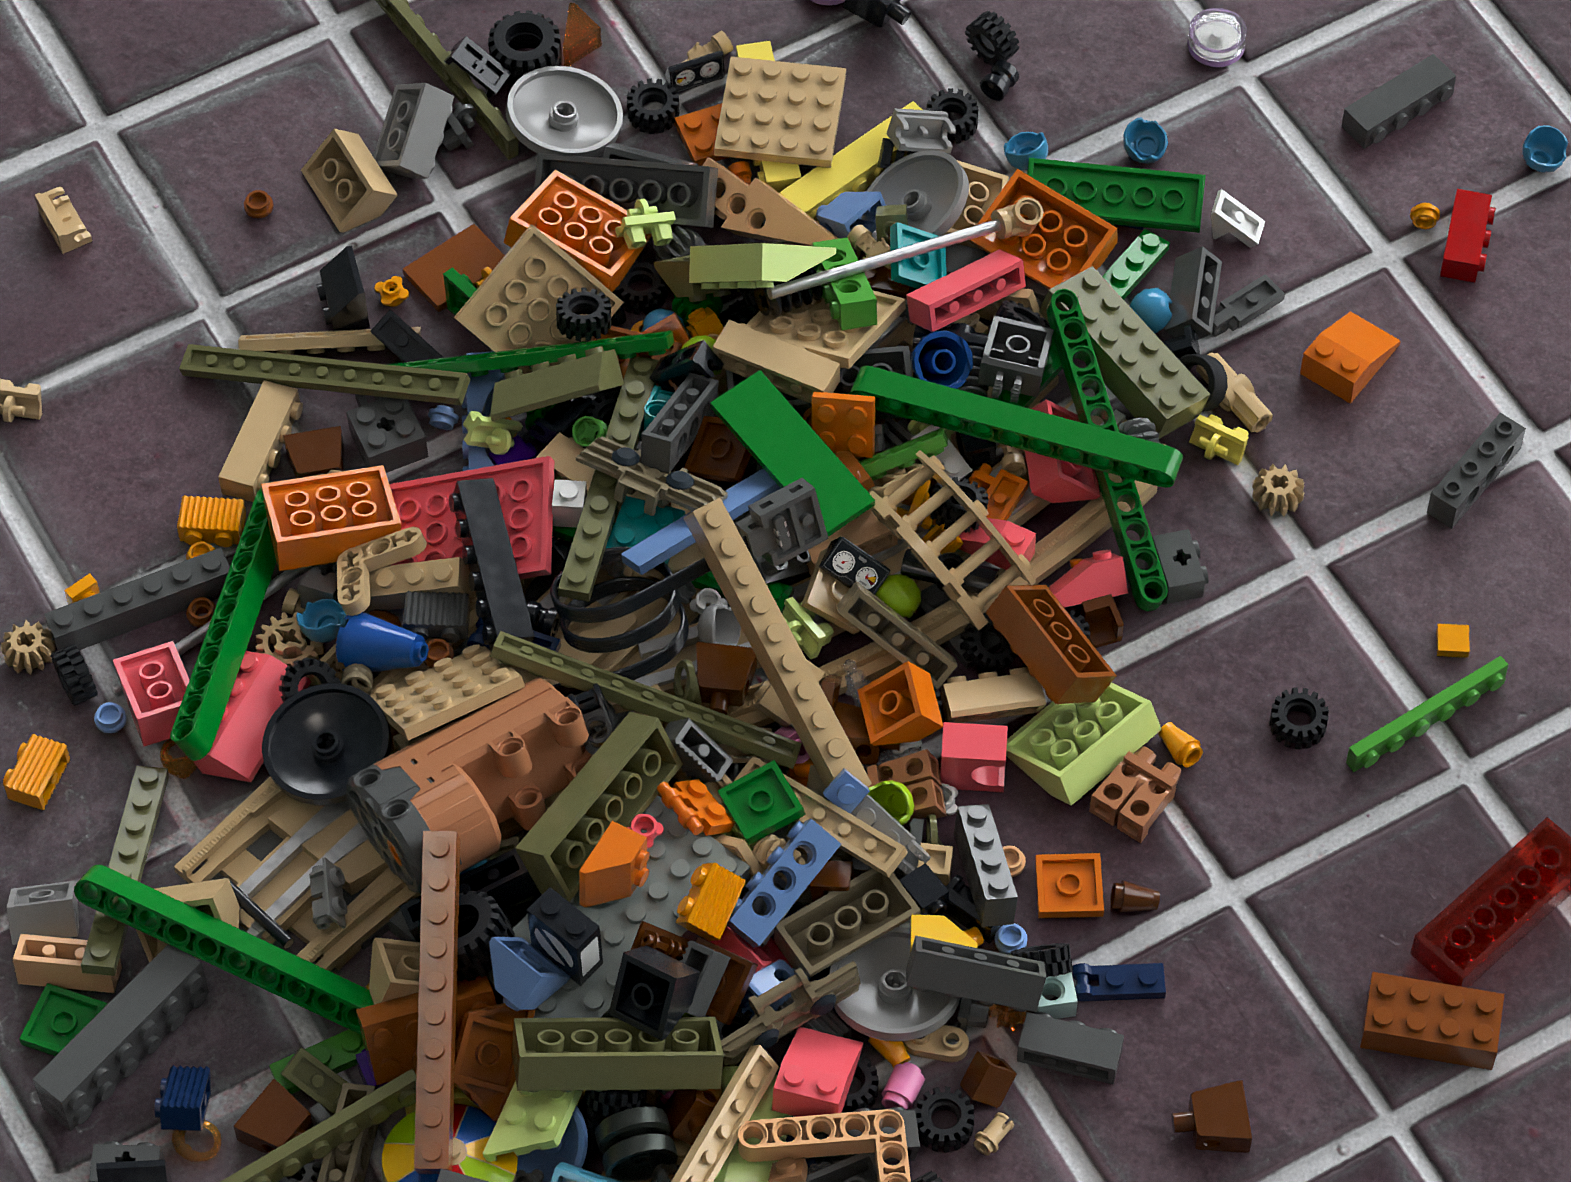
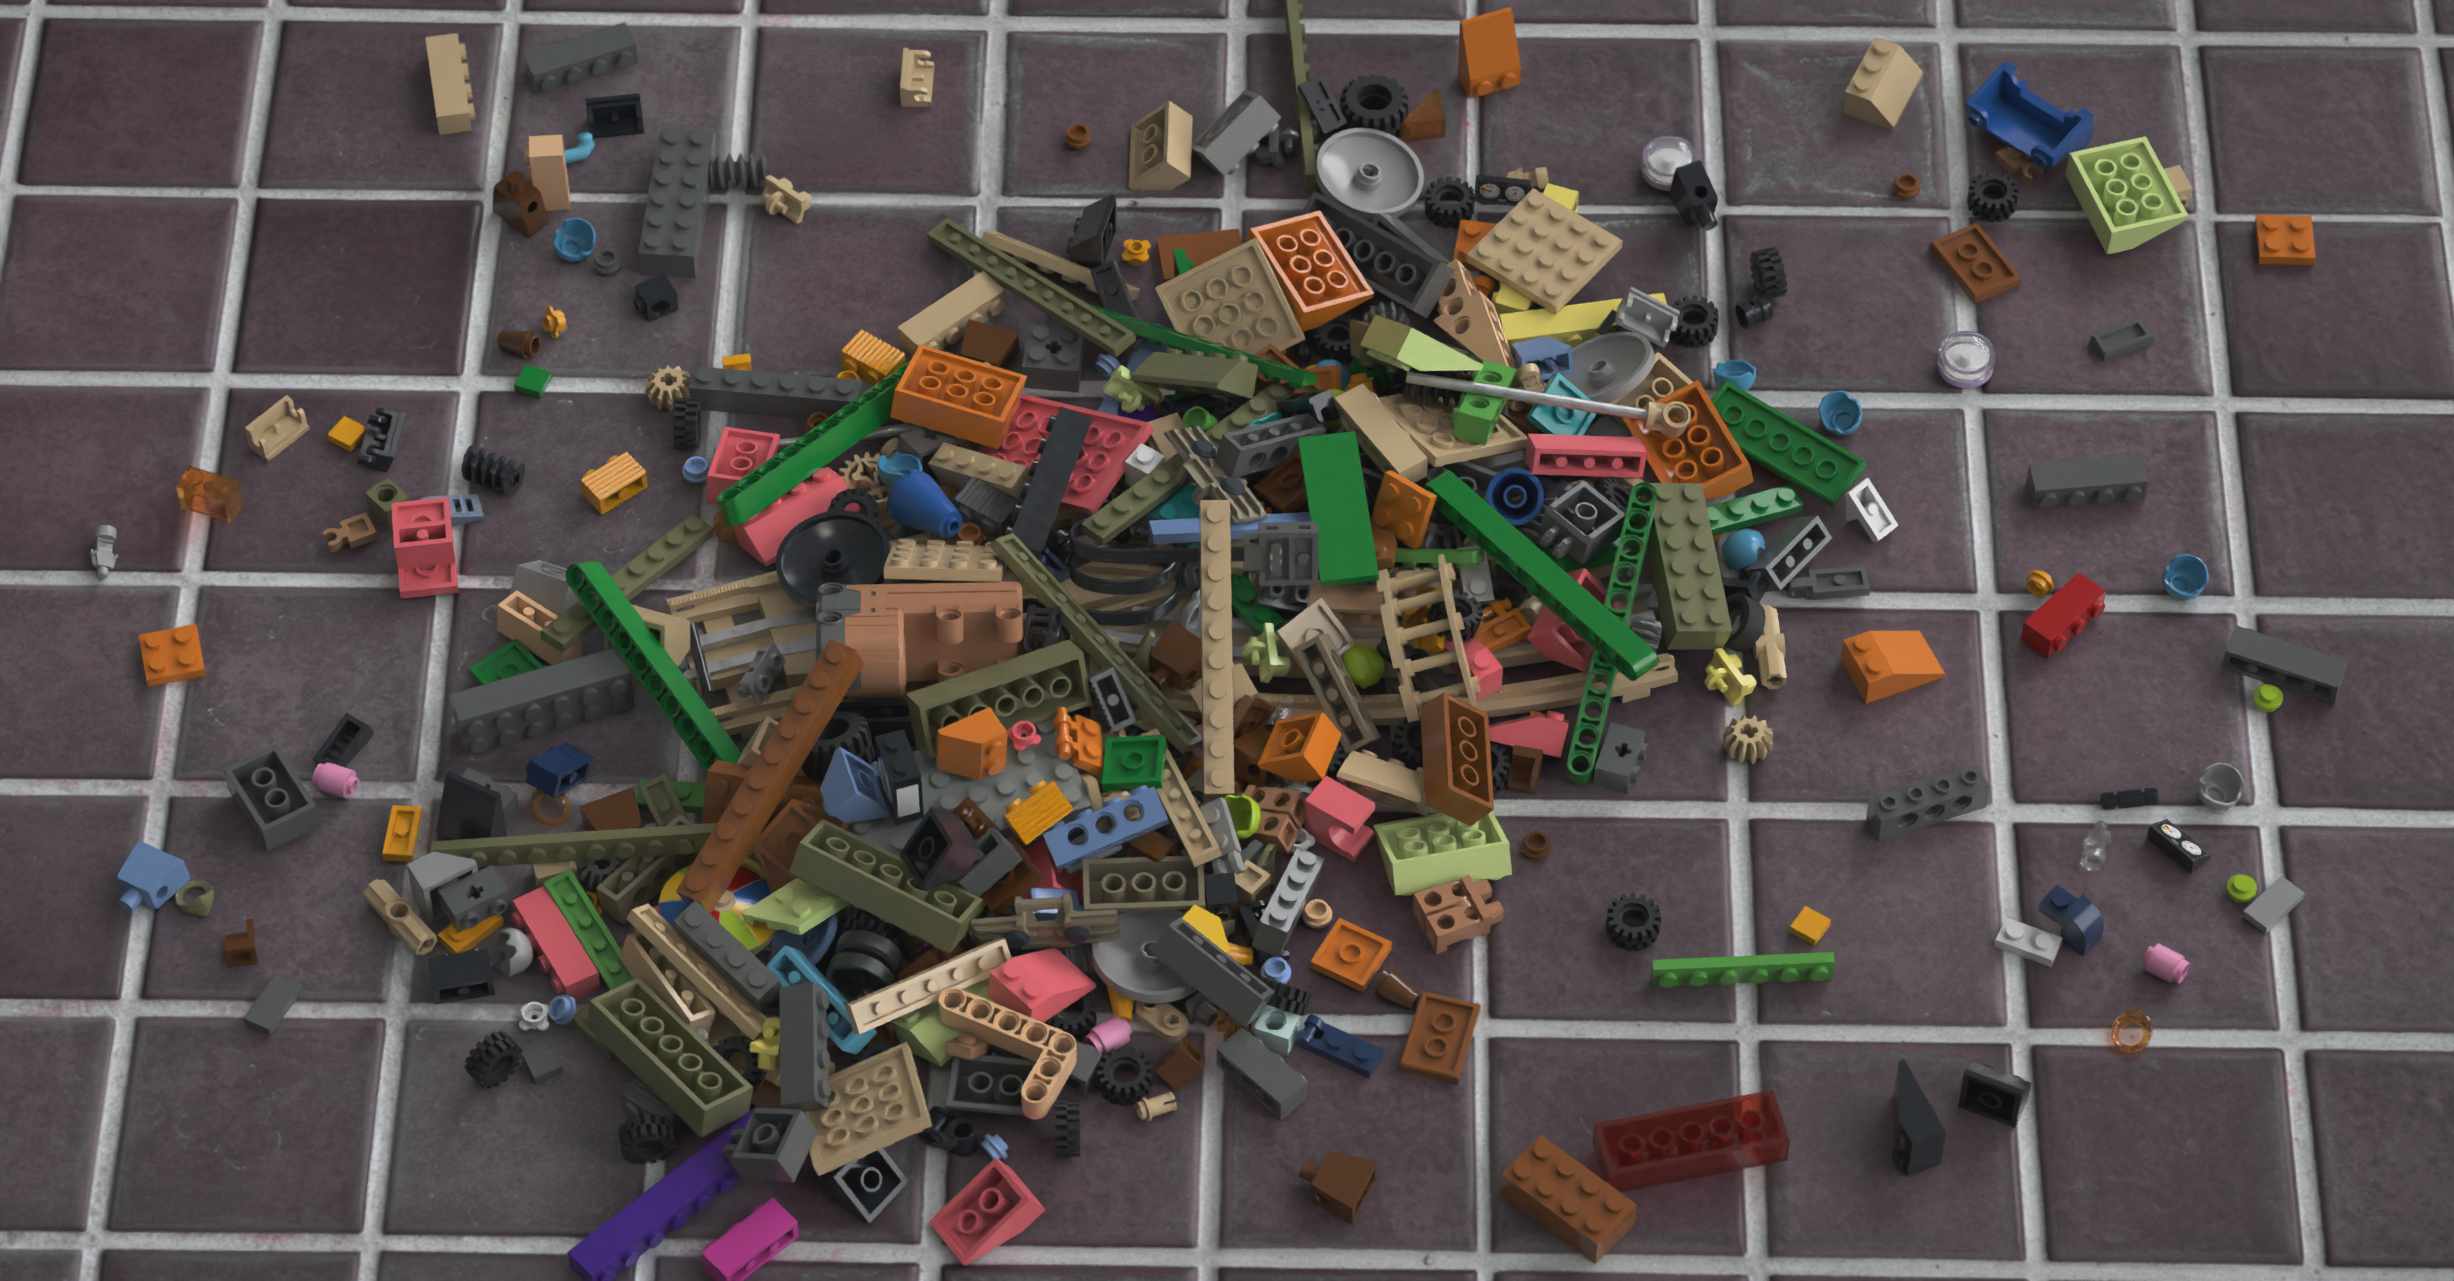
camera: 30 degrees right, 5 degrees down
(358, 672) = (899, 523): dark tan wheel -> none
(368, 558) = (959, 437): tan beam -> none
(583, 326) = (1258, 330): black tyre -> none
(643, 221) = (1362, 283): yellowish green hips -> none
(846, 791) = (1206, 786): medium blue plate -> none
(852, 564) = (1332, 618): slope -> none
(886, 217) = (1570, 370): olive brick -> none
(1160, 689) = (1536, 845): none -> reddish brown plate
(1182, 746) = (1520, 895): light orange cone -> none
(1203, 923) = (1439, 1037): none -> dark orange tile

